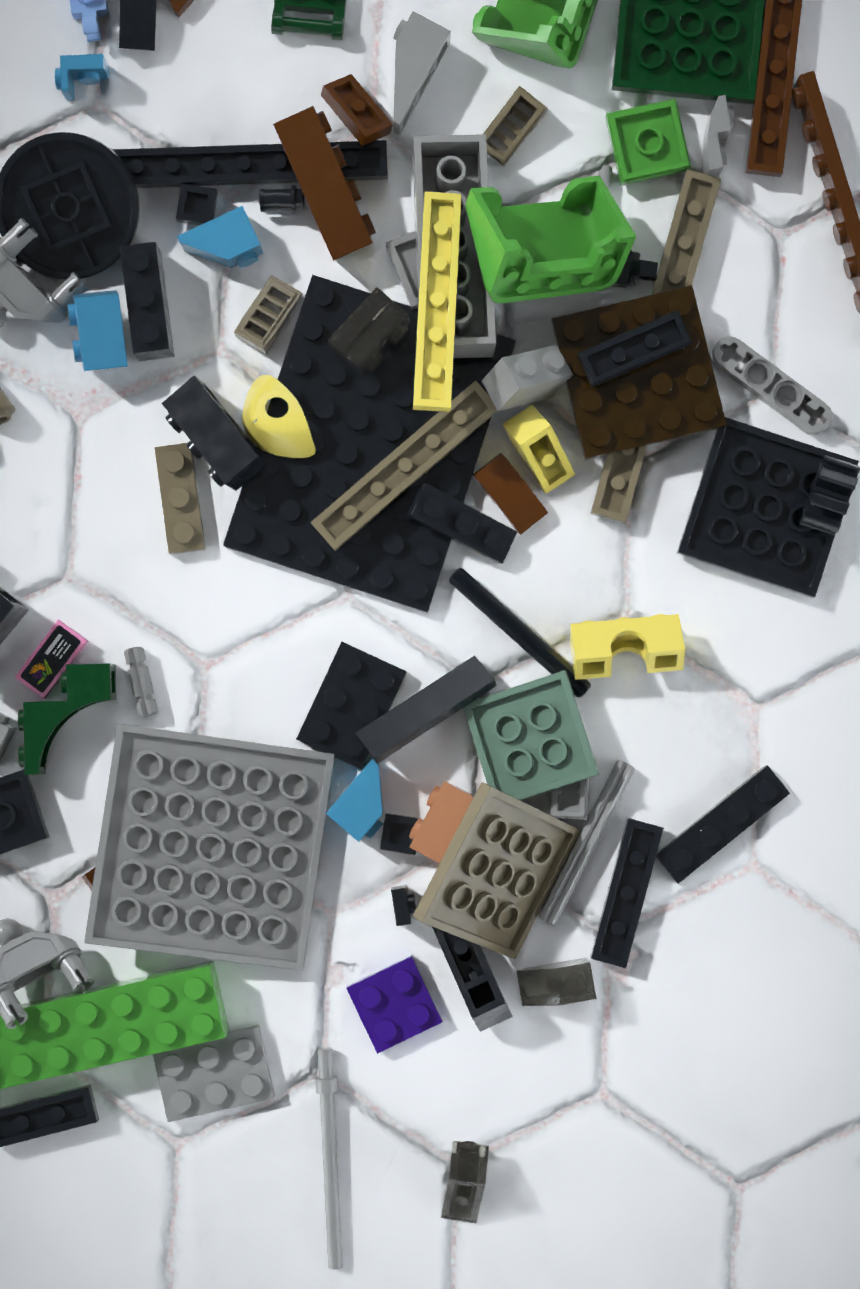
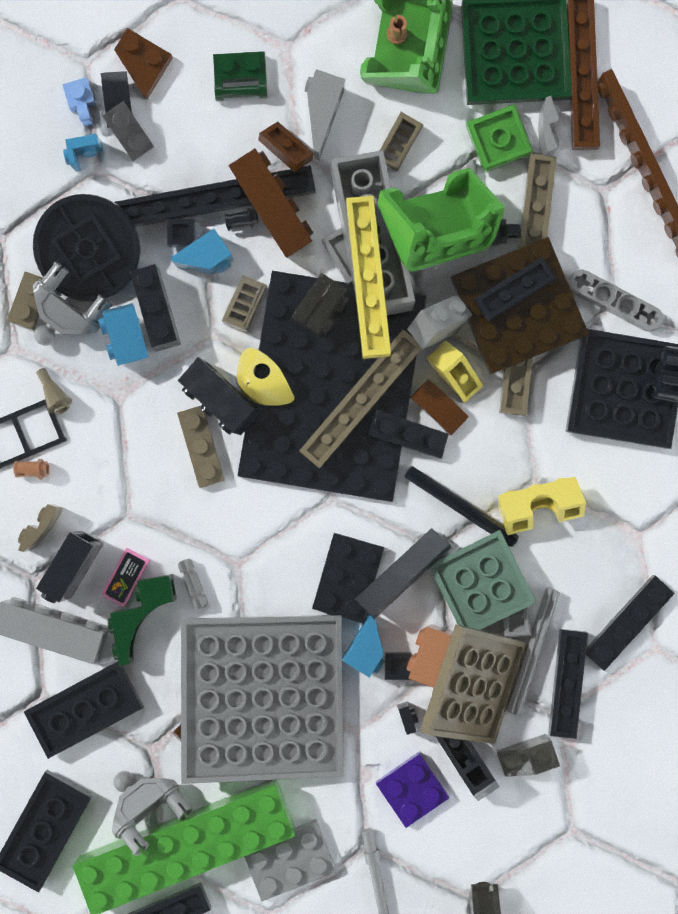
camera: 10 degrees left, 0 degrees up
(146, 56) = (128, 131): none -> flat silver plate

